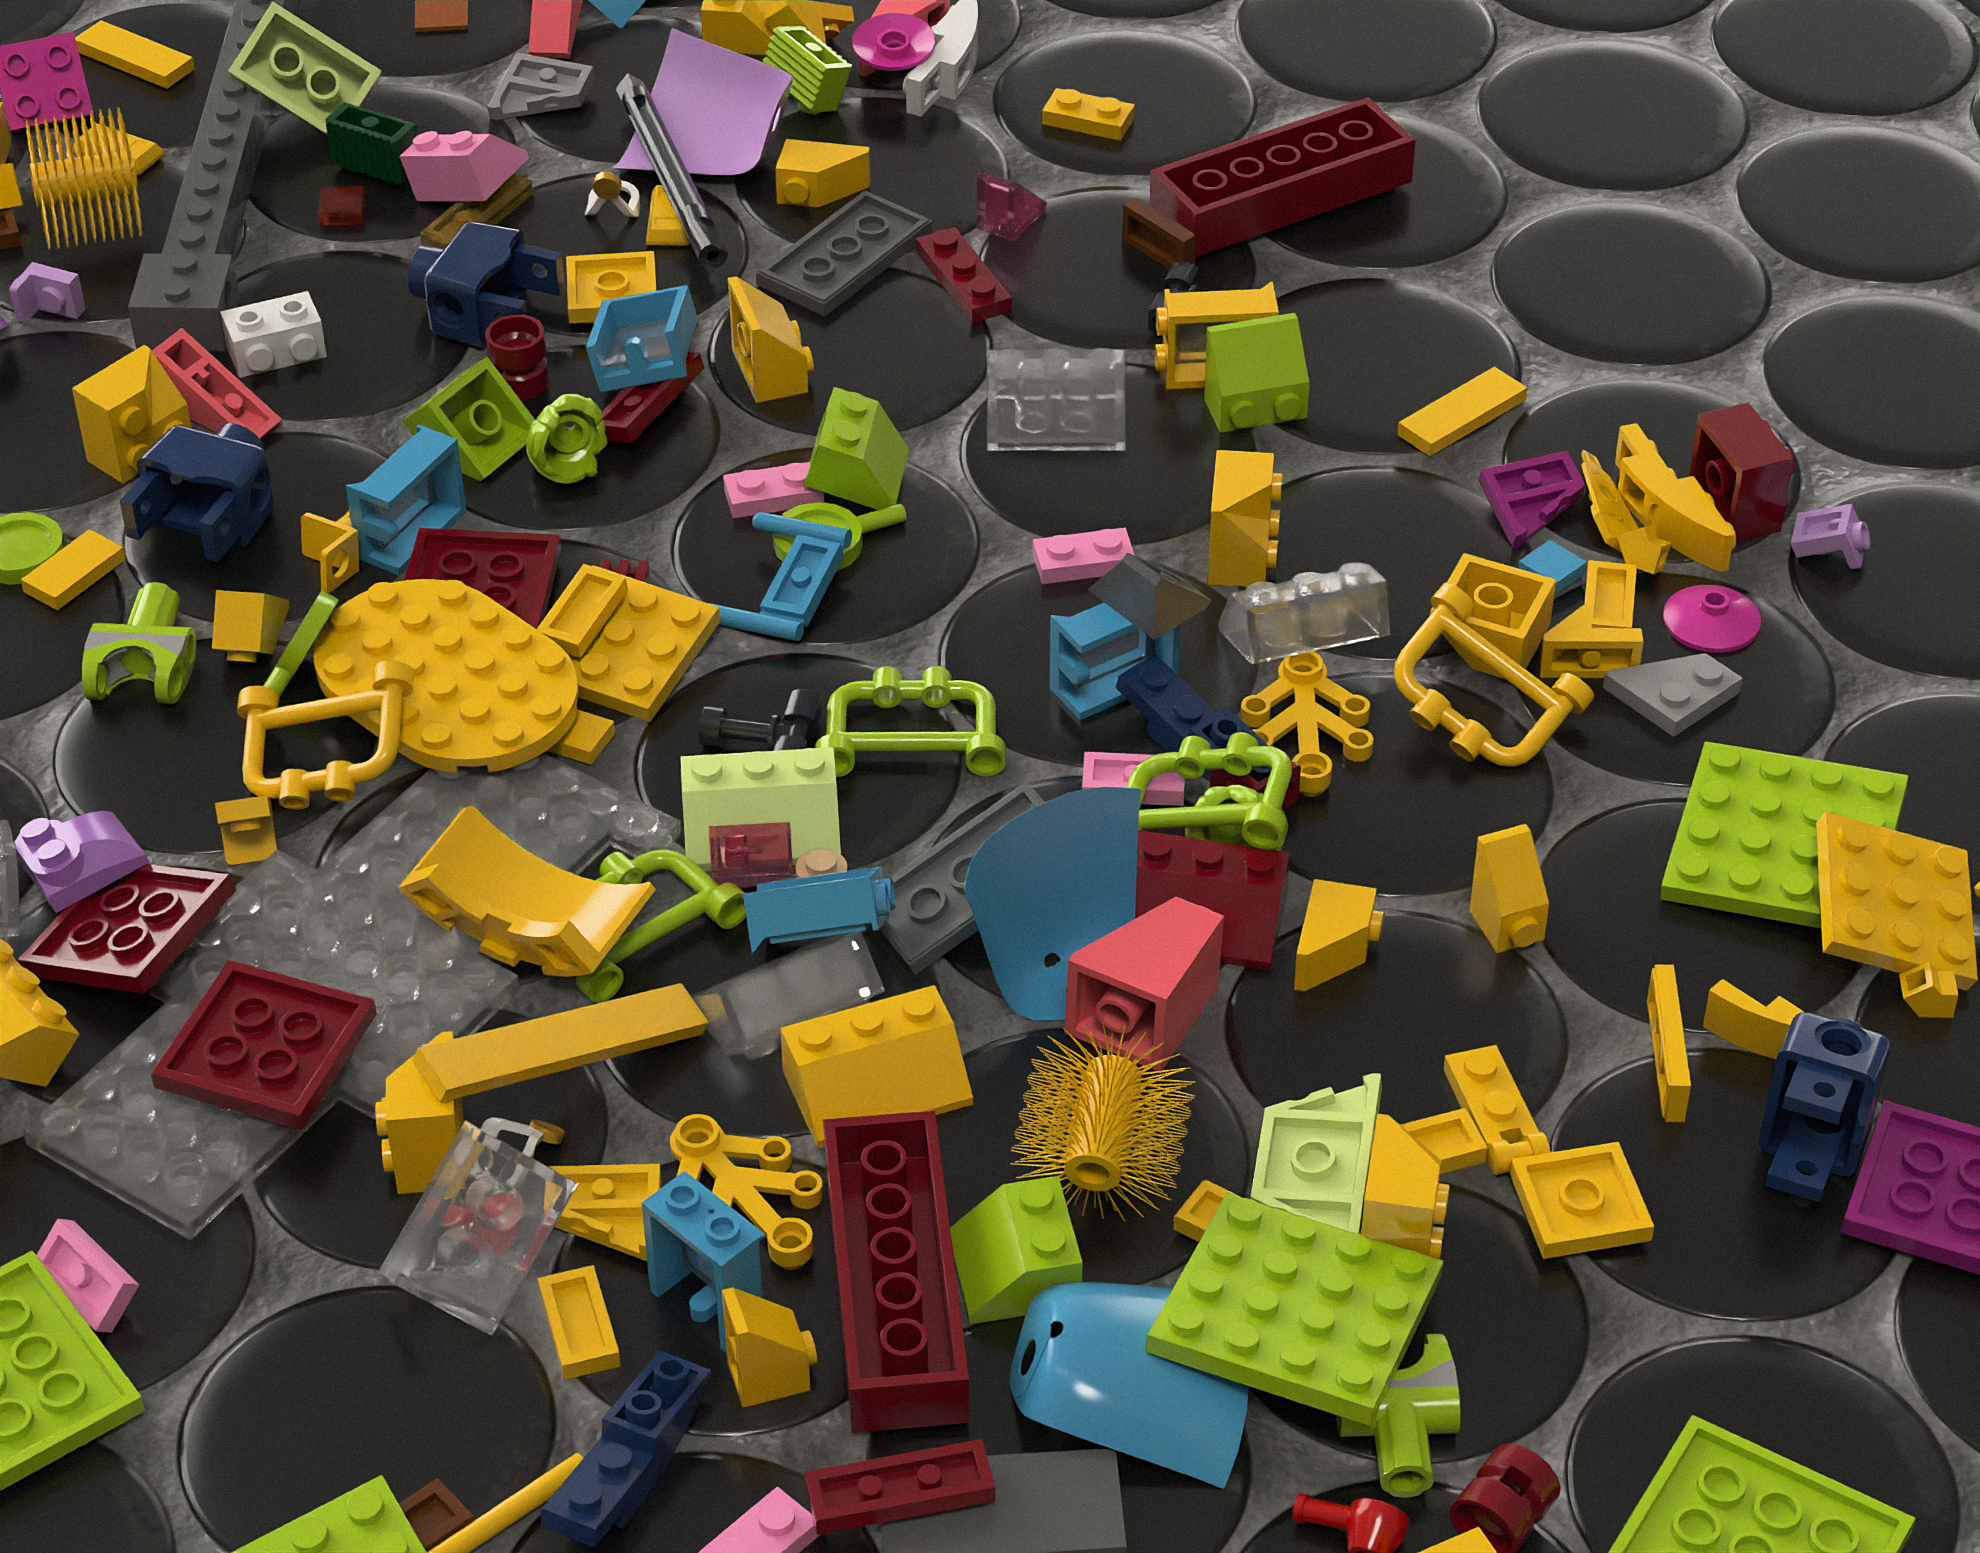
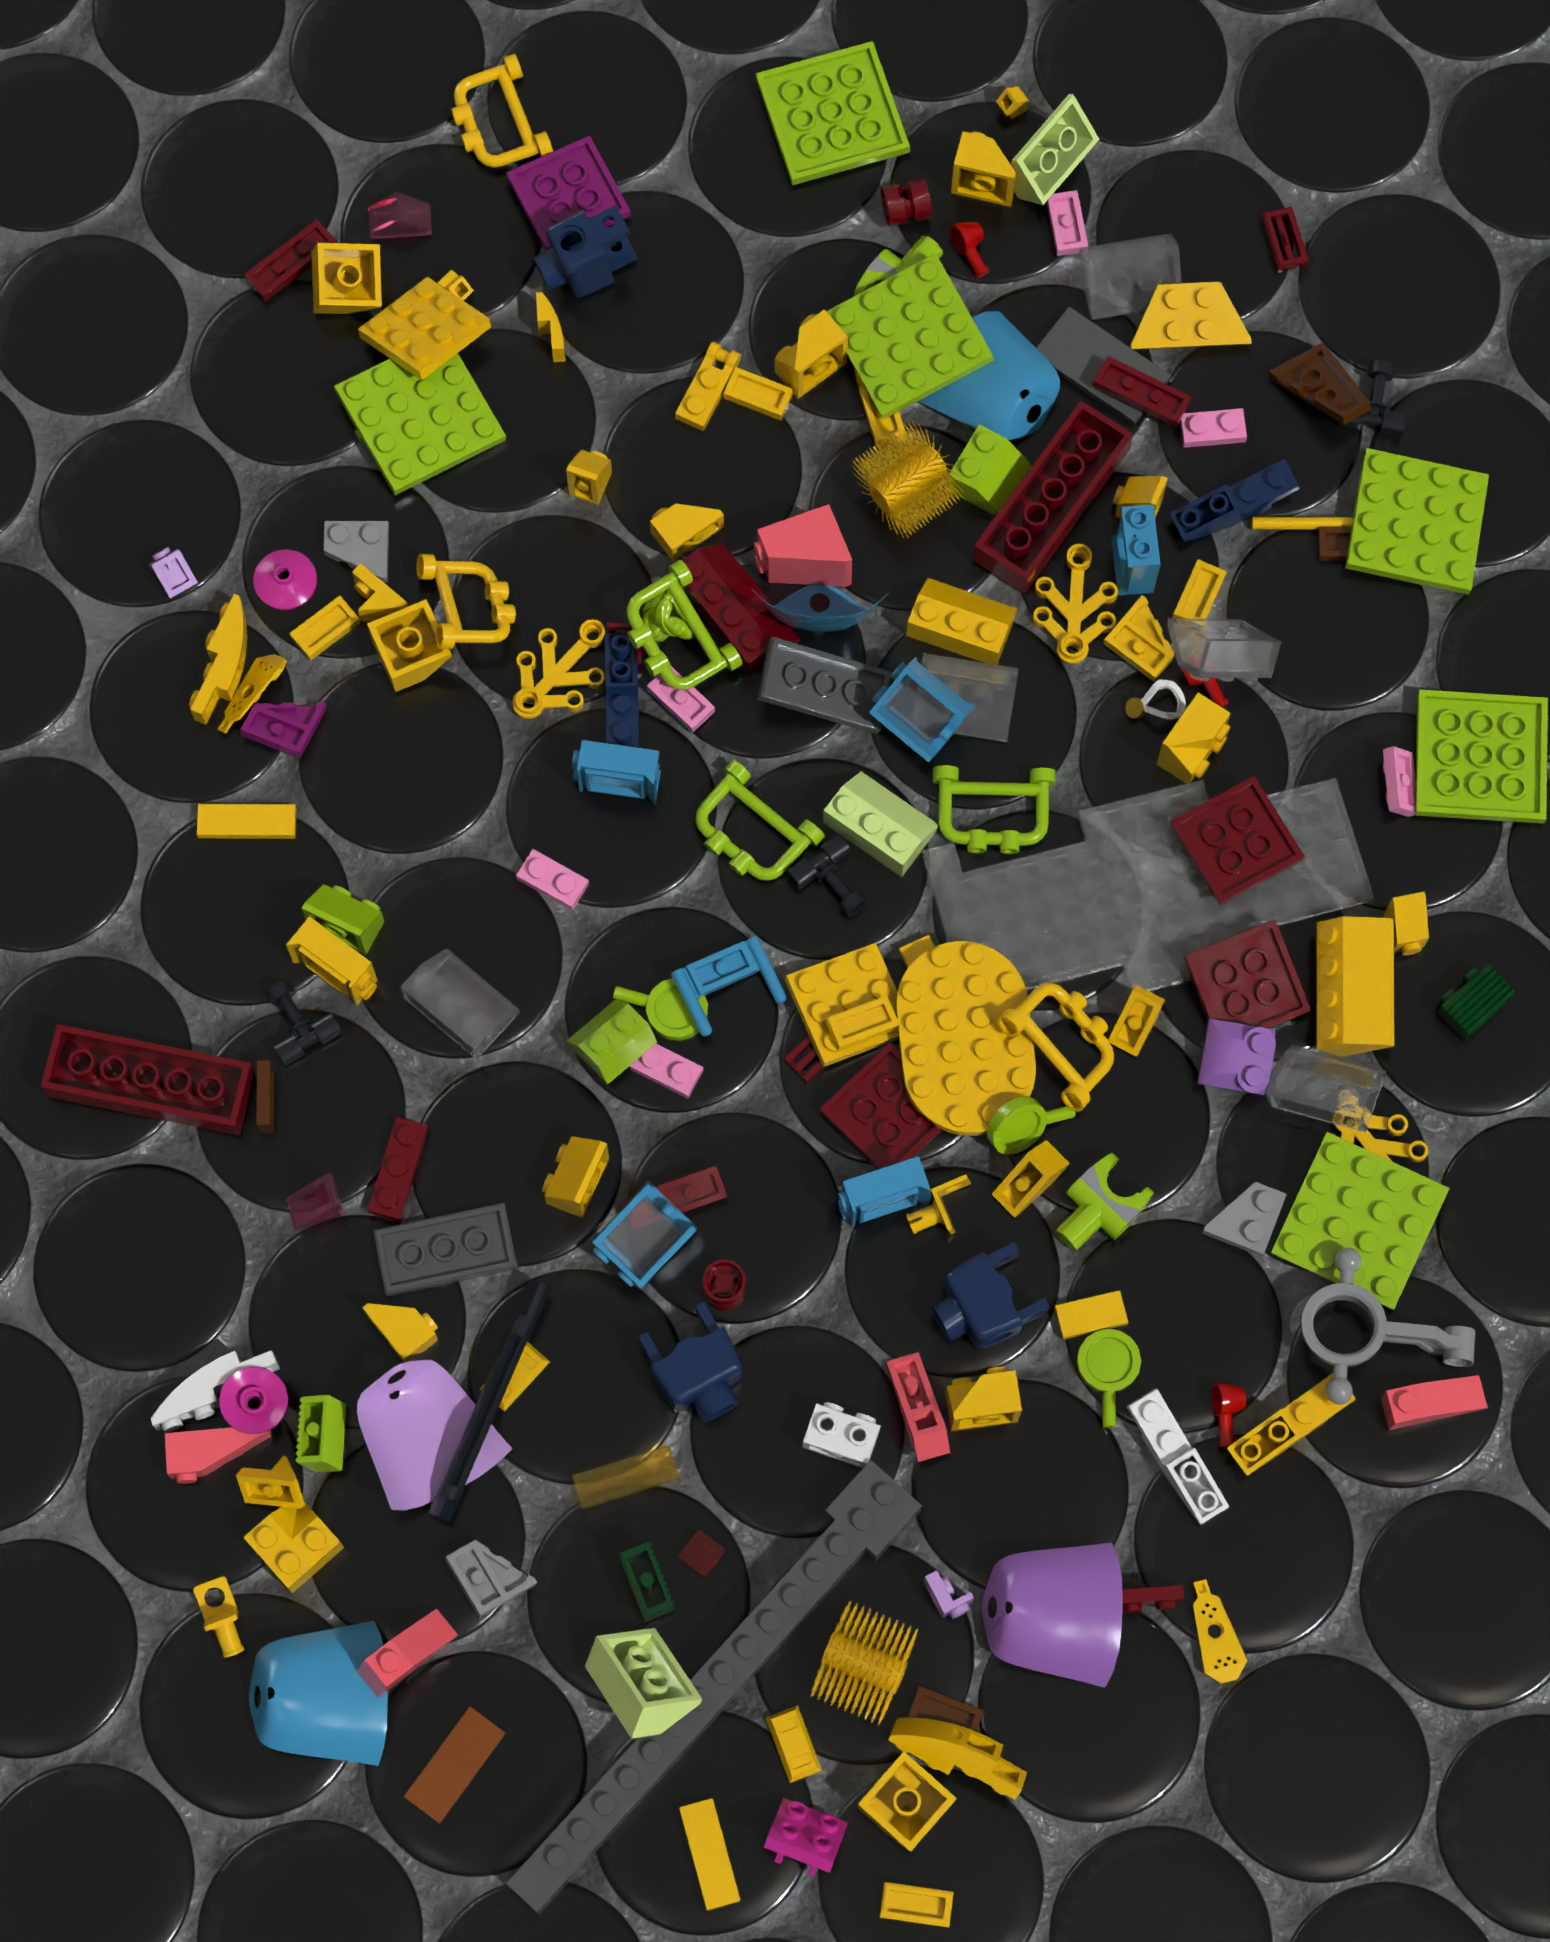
camera: 140 degrees left, 30 degrees up
(459, 165) = (606, 1511): bright pink slope -> none
(481, 415) = (790, 1254): lime slope -> none
(518, 901) = (1046, 830): yellow panel -> none
(559, 1042) = (1106, 718): yellow tile -> none
(564, 452) = (759, 1187): lime hair -> none
(606, 278) = (611, 1321): yellow plate -> none
(607, 187) = (550, 1405): piece -> none
(750, 850) = (915, 795): clear pink slope -> none
(820, 862) = (880, 765): tan plate -> none
(1088, 114) = (180, 1263): yellow plate -> none
(1149, 596) = (596, 743): dark grey slope -> none
(1243, 518) = (465, 812): yellow slope -> none
(1307, 613) = (498, 725): clear slope -> none
(1319, 1154) = (816, 413): yellowish green wing -> none
(1556, 563) = (328, 672): dark azure tile -> none
(1581, 1200) = (724, 311): yellow plate -> none
(1644, 549) = (274, 637): yellow piece -> none
(1668, 1043) = (601, 351): yellow tile -> none
(1742, 469) = (179, 630): dark red brick -> none

